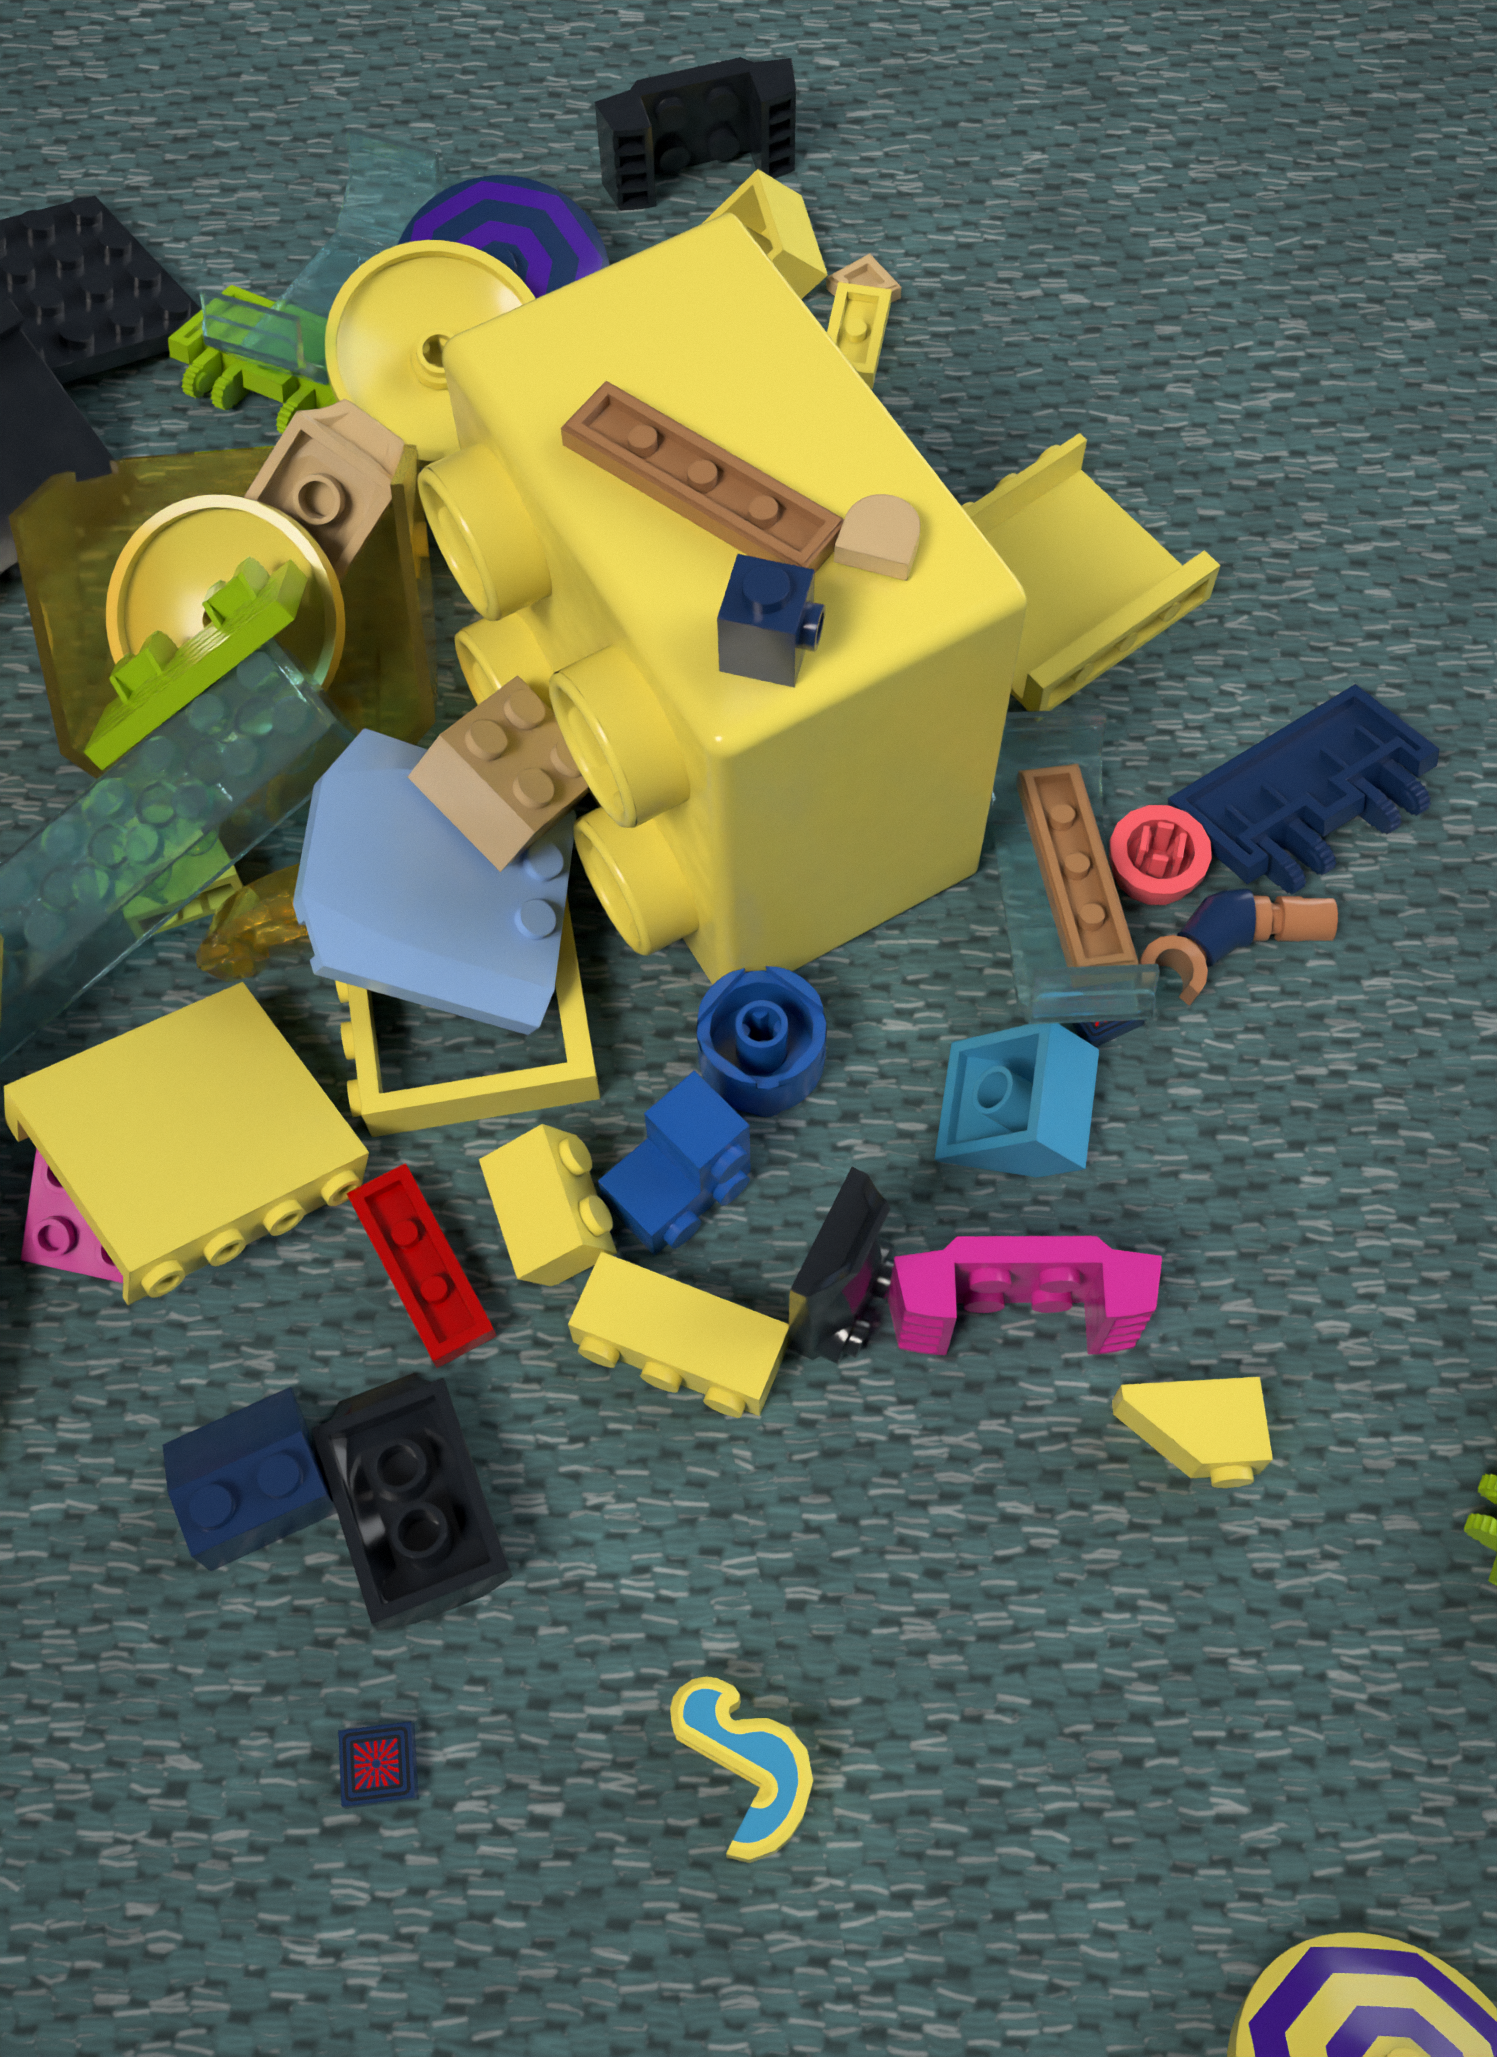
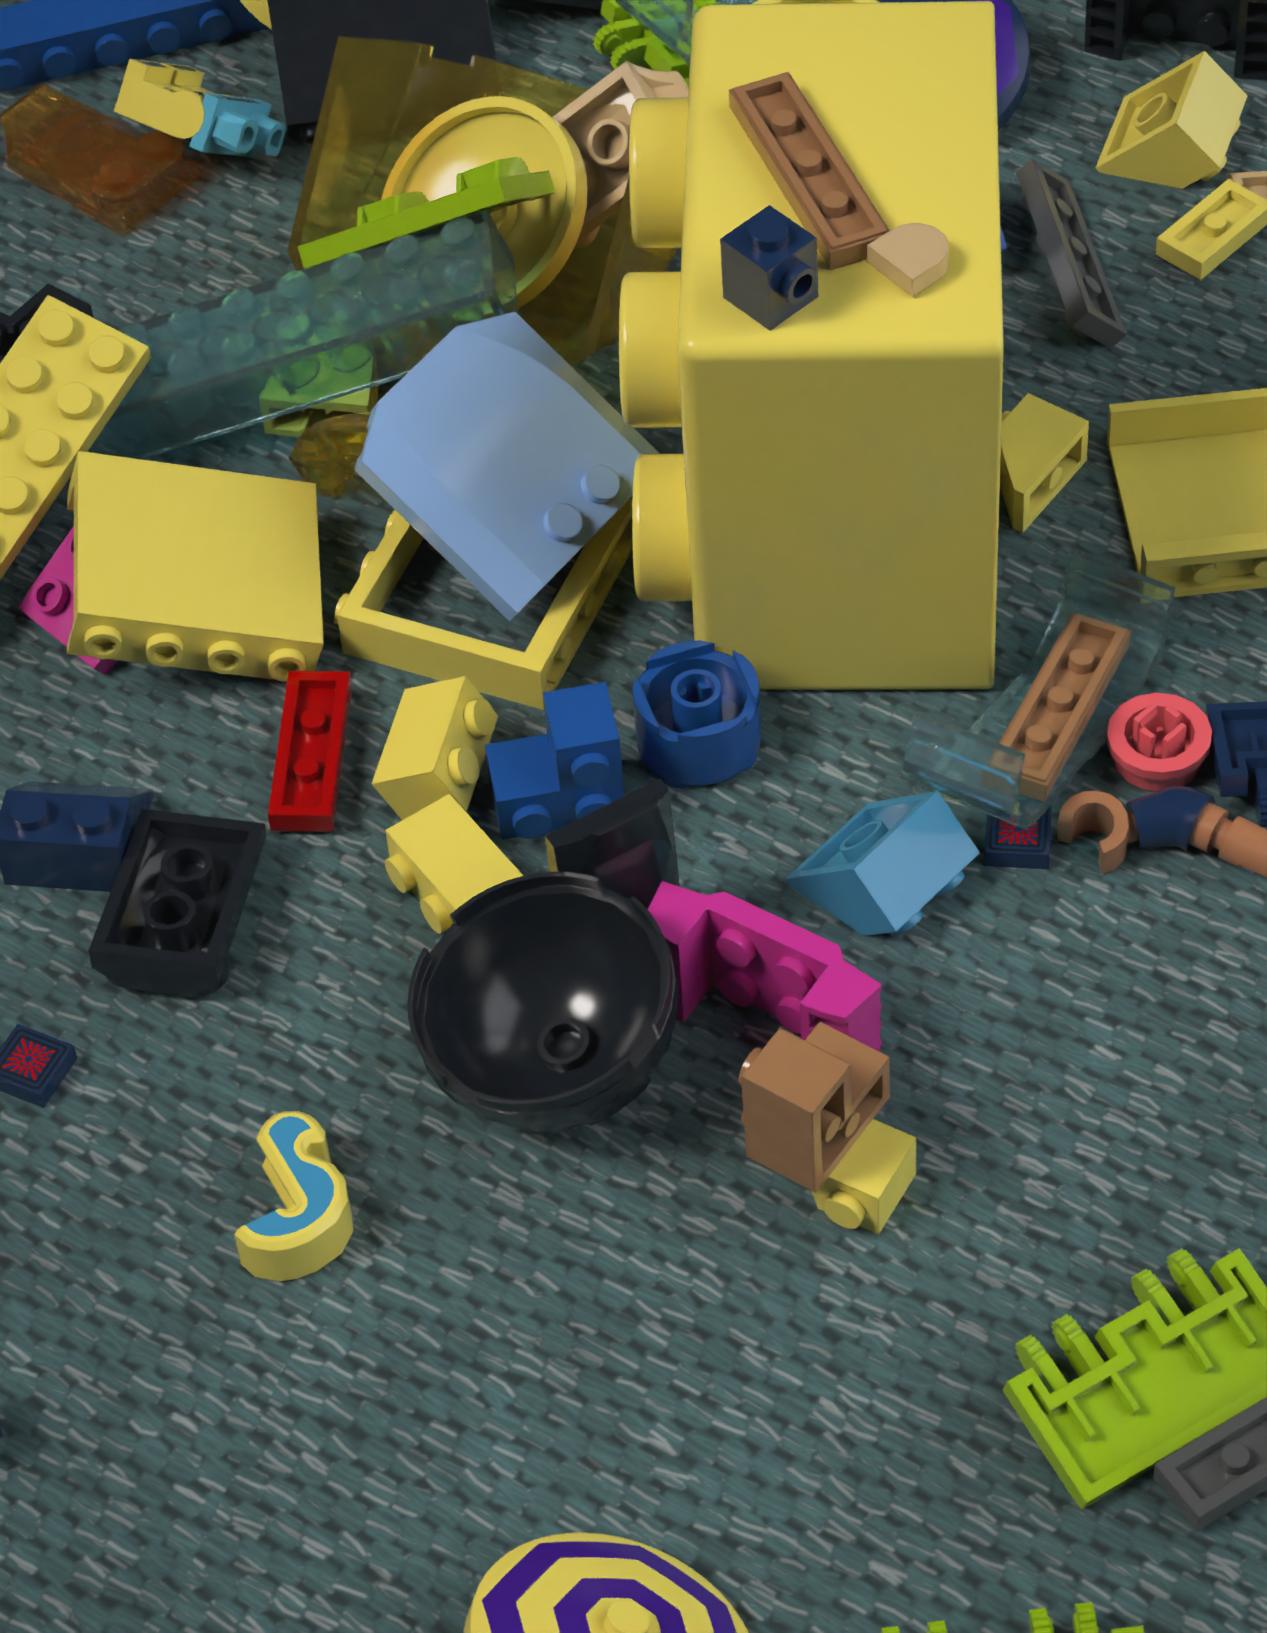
camera: 35 degrees right, 15 degrees down
(502, 773) = (579, 399): tan brick -> none
(875, 1448) = (545, 1002): none -> black rock
(1181, 1409) = (810, 1101): none -> medium nougat brick

